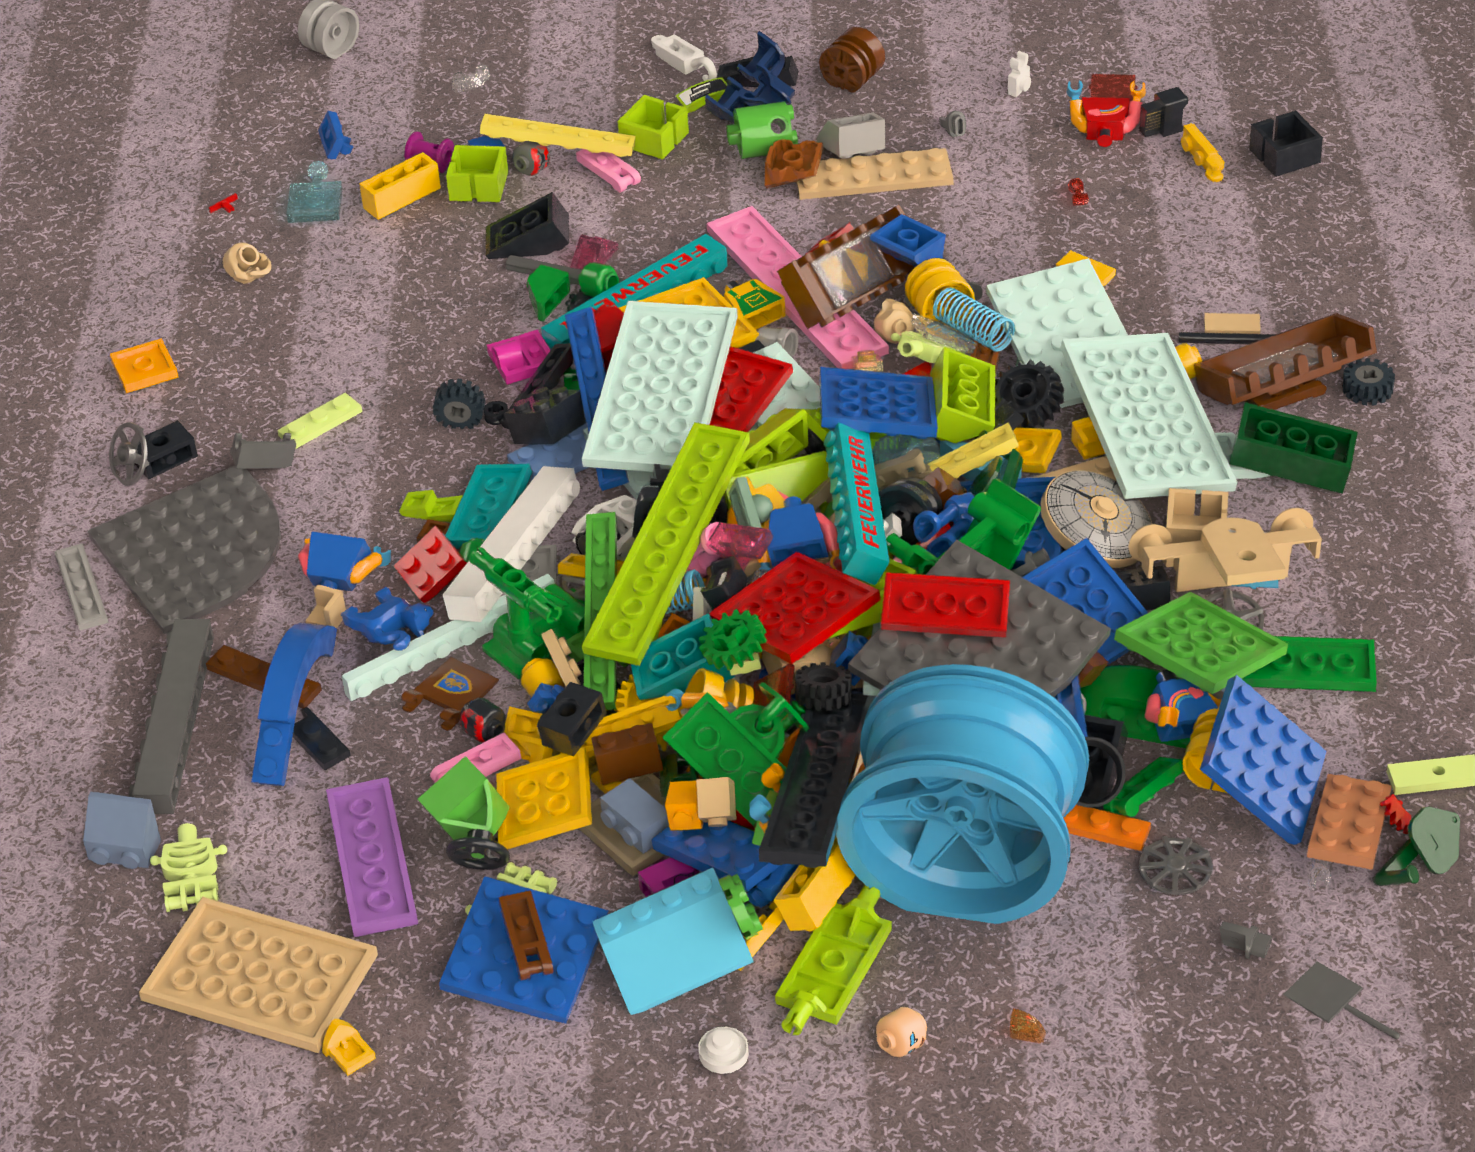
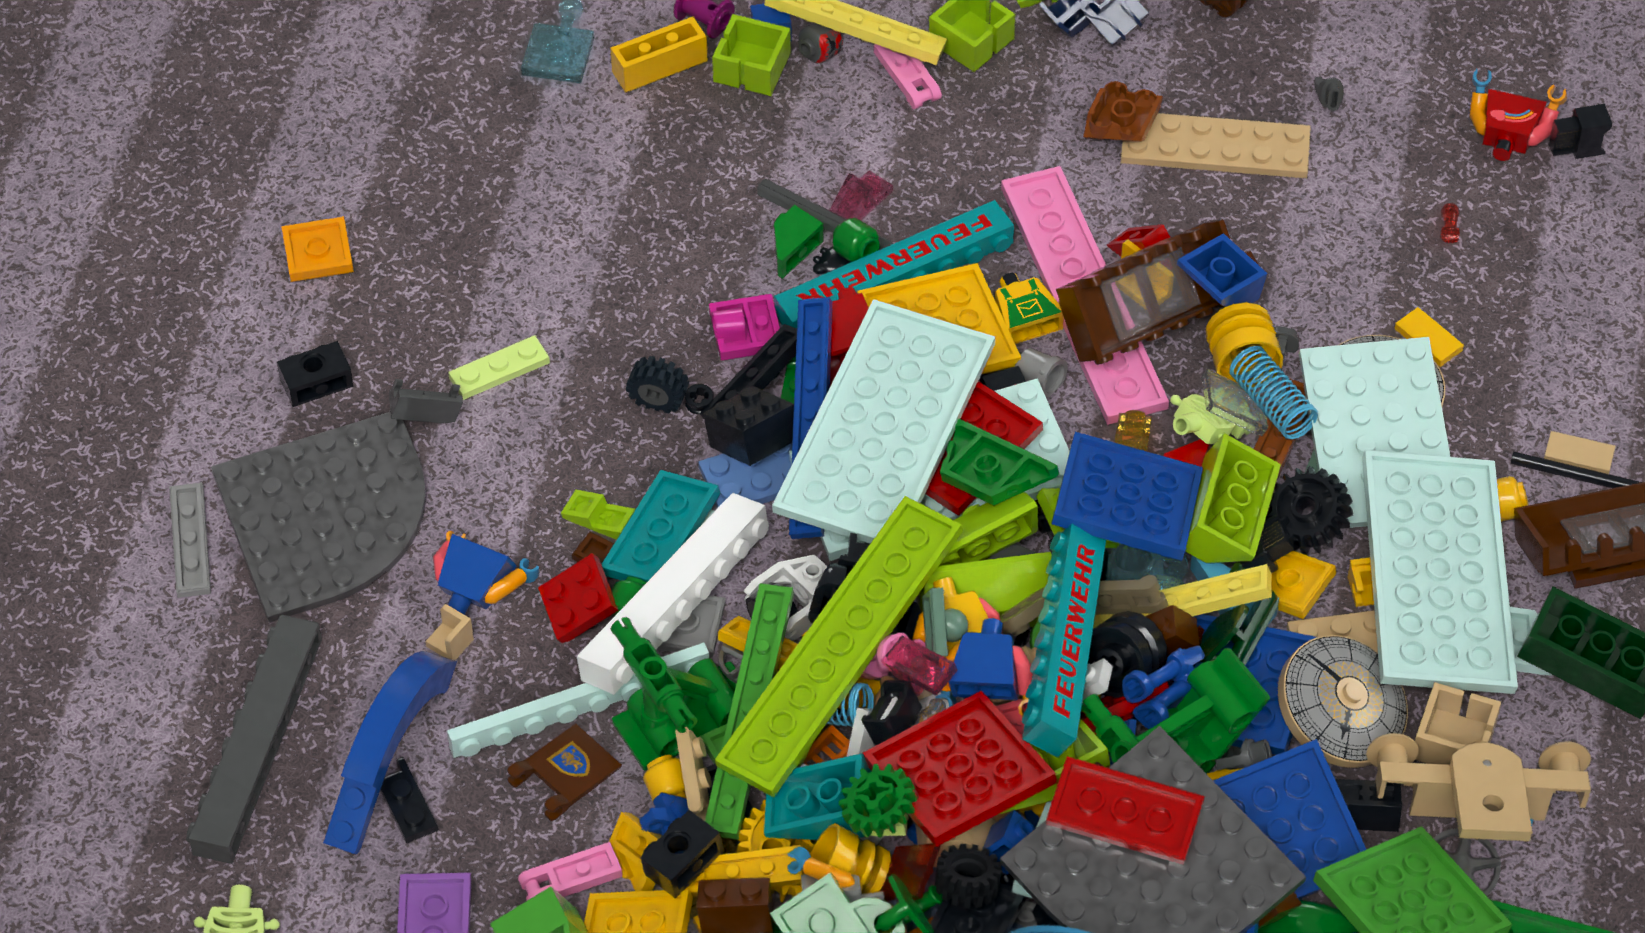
camera: 10 degrees right, 10 degrees up
(120, 830) = (167, 883): sand blue slope -> none
(128, 454) = (273, 375): flat silver wheel -> none
(225, 204) = (454, 33): red piece -> none
(245, 263) = (460, 129): tan head -> none
(253, 672) = (354, 696): reddish brown plate -> none
(386, 620) = (515, 663): blue animal -> none
(482, 719) = (590, 820): black head -> none
(529, 230) = (794, 148): black slope -> none
(753, 128) = (1087, 58): bright green cylinder -> none
(760, 397) = (992, 466): none -> green wing
(853, 135) = (1203, 91): light grey slope -> none
(893, 318) = (1183, 368): tan head -> none
(1019, 77) = (1424, 41): white plate -> none
(1112, 86) = (1534, 72): clear red piece -> none
(1202, 152) = (1613, 197): yellow hinge -> none

